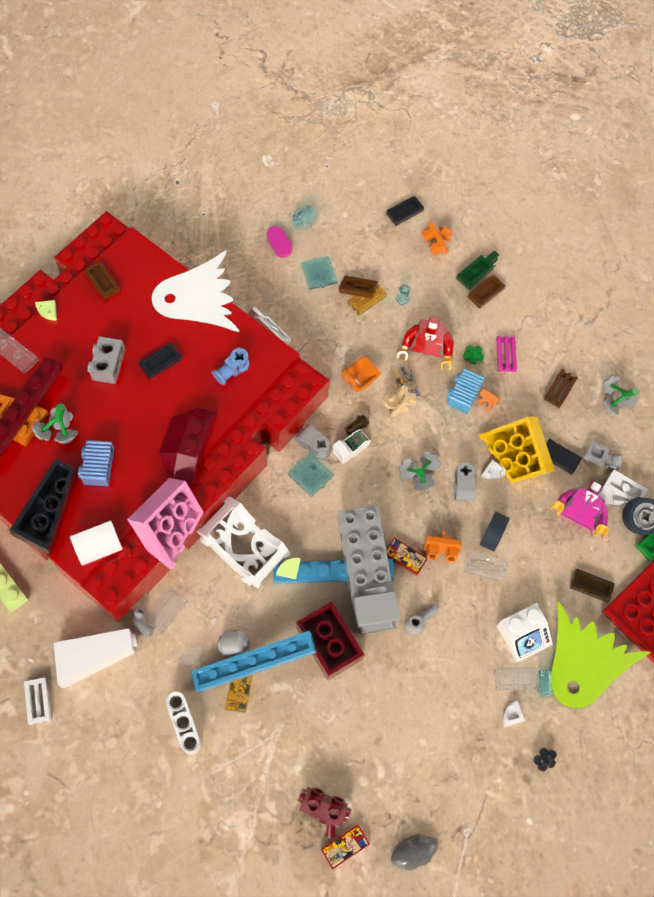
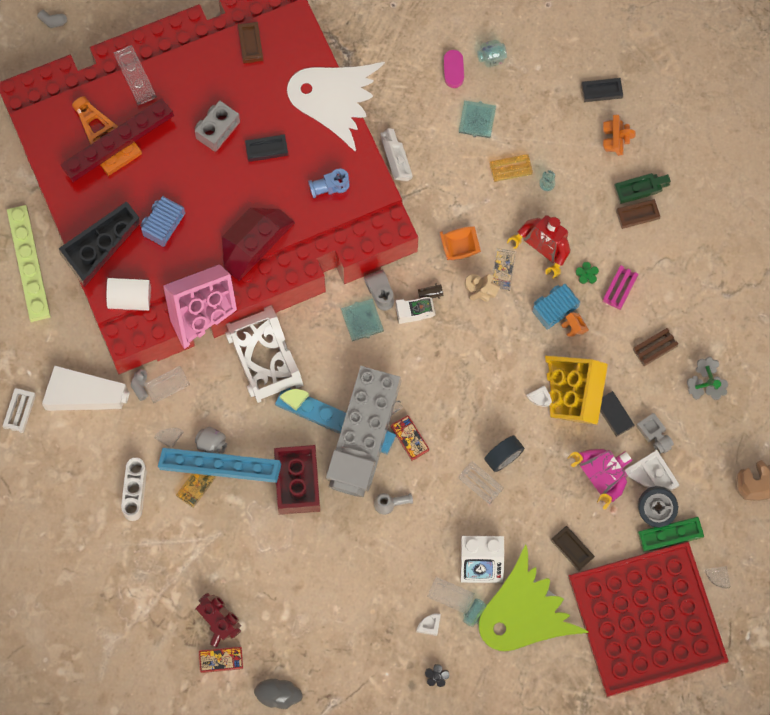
camera: 30 degrees right, 5 degrees up
(47, 309) = (186, 50): yellowish green tile -> none
(60, 420) = (147, 164): light grey plant -> none
(357, 288) = (504, 154): reddish brown tile -> none
(423, 481) = (464, 372): light grey plant -> none
(442, 545) = (448, 442): orange hips -> none
(465, 485) = (502, 398): light grey piece -> none

